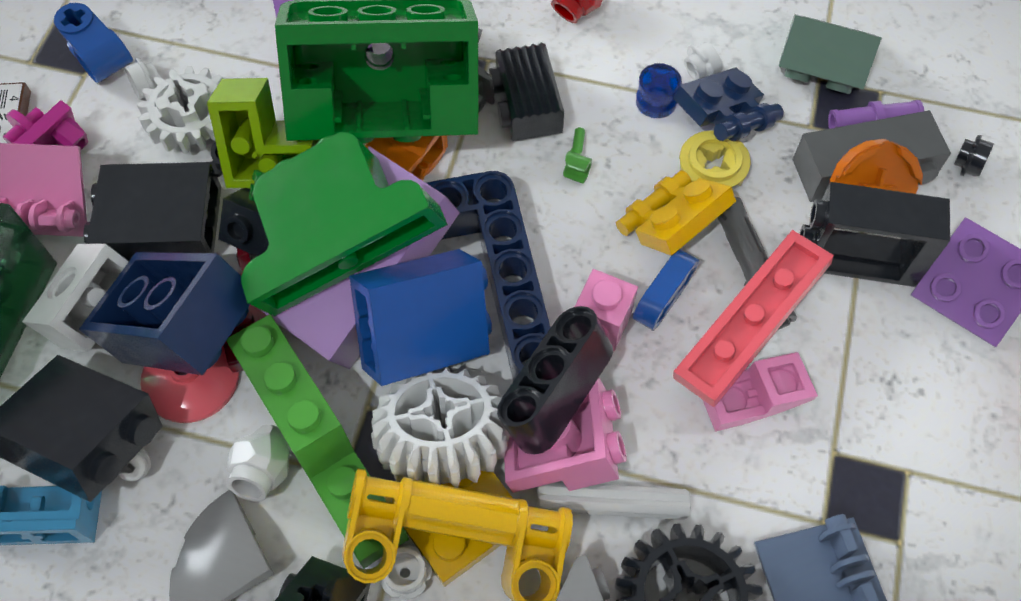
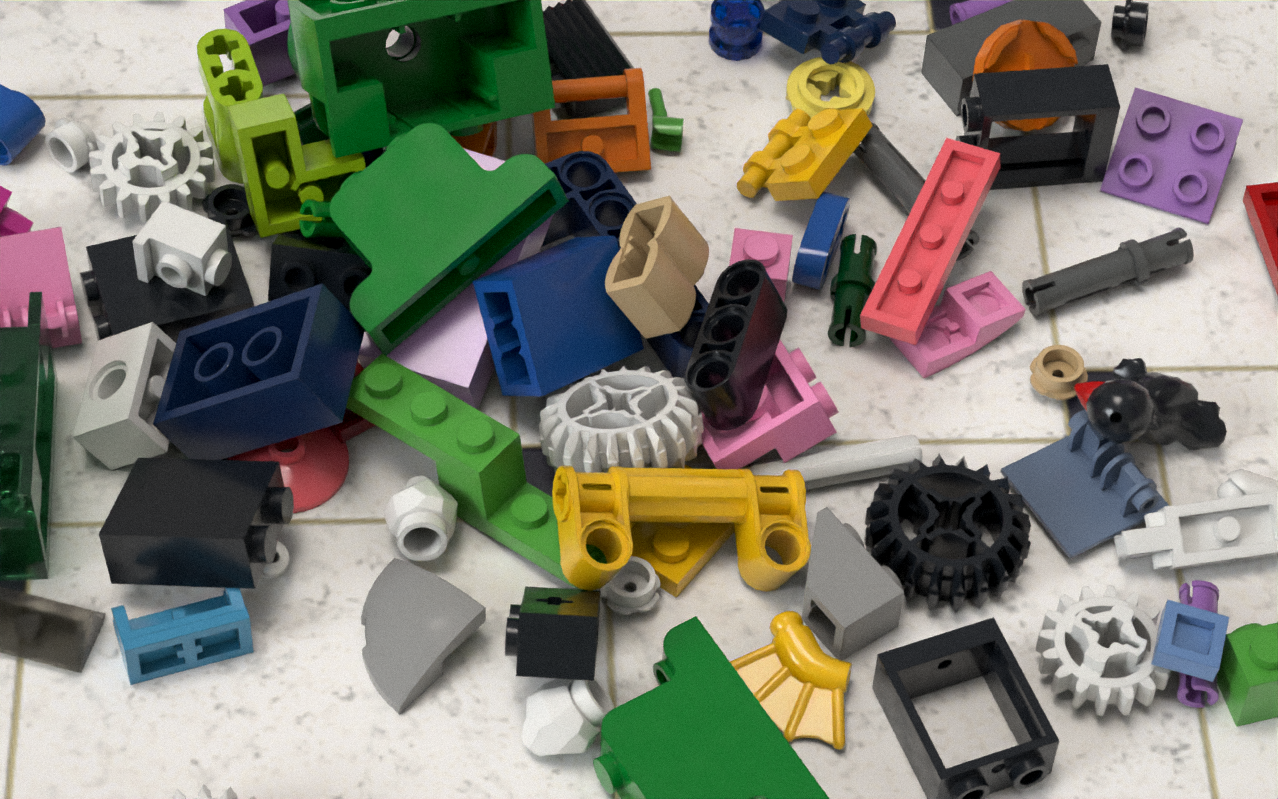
camera: 20 degrees left, 10 degrees down
(153, 187) = (182, 249): none -> white brick
(252, 62) = (224, 90): none -> lime connector
(509, 296) = (657, 267): none -> tan brick
(528, 165) = (616, 138): none -> orange plate
(678, 338) = (851, 289): none -> dark green pin
(832, 449) = (1057, 361): none -> tan plate
(898, 525) = (1150, 409): none -> black animal
(918, 372) = (1129, 264): none -> dark grey pin

